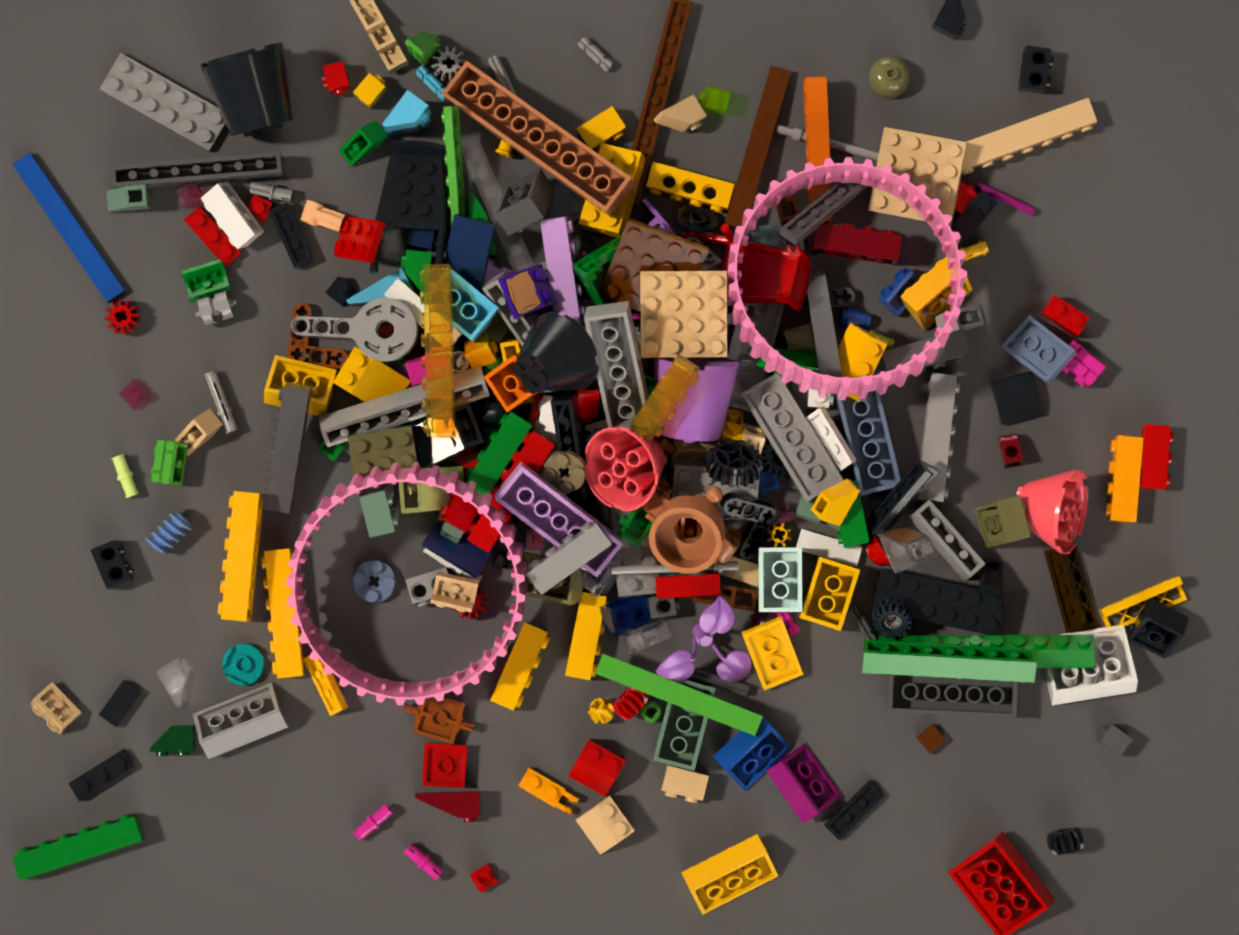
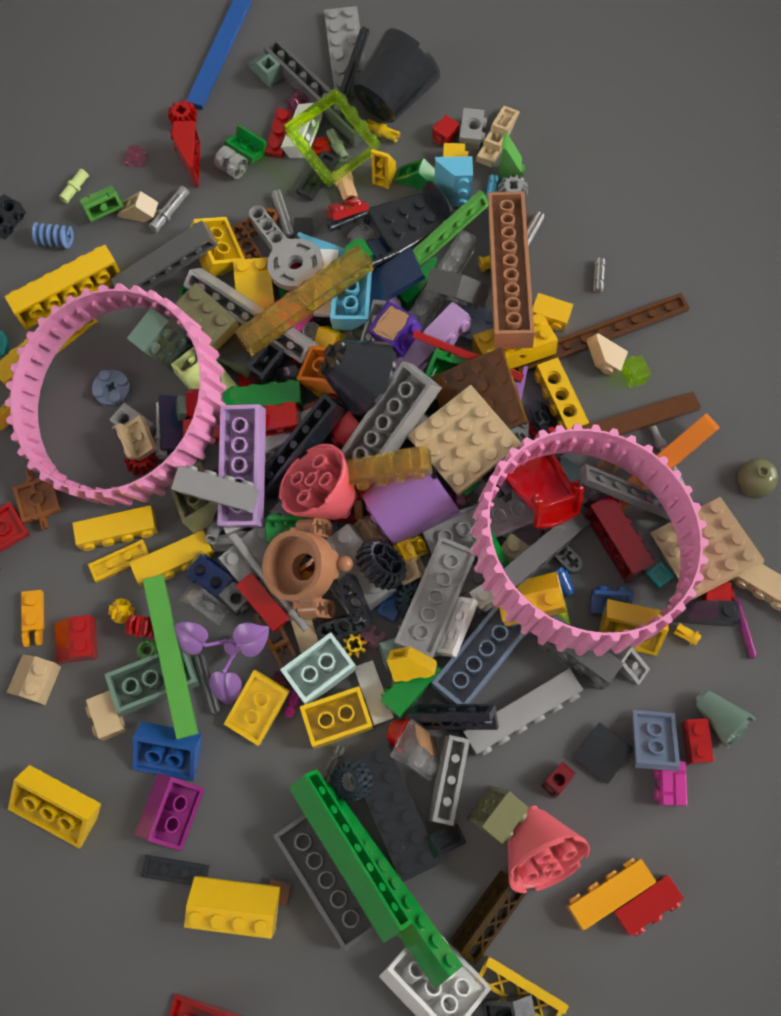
camera: 55 degrees right, 15 degrees down
(170, 340) = (188, 147): none -> red slope
(193, 109) = (354, 61): none -> black axle
(283, 161) = (351, 114): none -> clear neon green window
(287, 136) = (383, 131): none -> yellow pin
(307, 297) = (282, 213): none -> light grey axle
(337, 169) = (382, 168): none -> yellow slope
(358, 62) = (471, 128): none -> light grey brick
(550, 683) = (117, 561): none -> yellow tile
(563, 460) = (272, 446): dark tan plate -> none
(595, 251) = (453, 349): none -> red tile
(909, 230) = (659, 575): none -> teal tile
(917, 782) = (232, 907): none -> yellow slope
(1061, 279) = (724, 717): none -> sand green cone

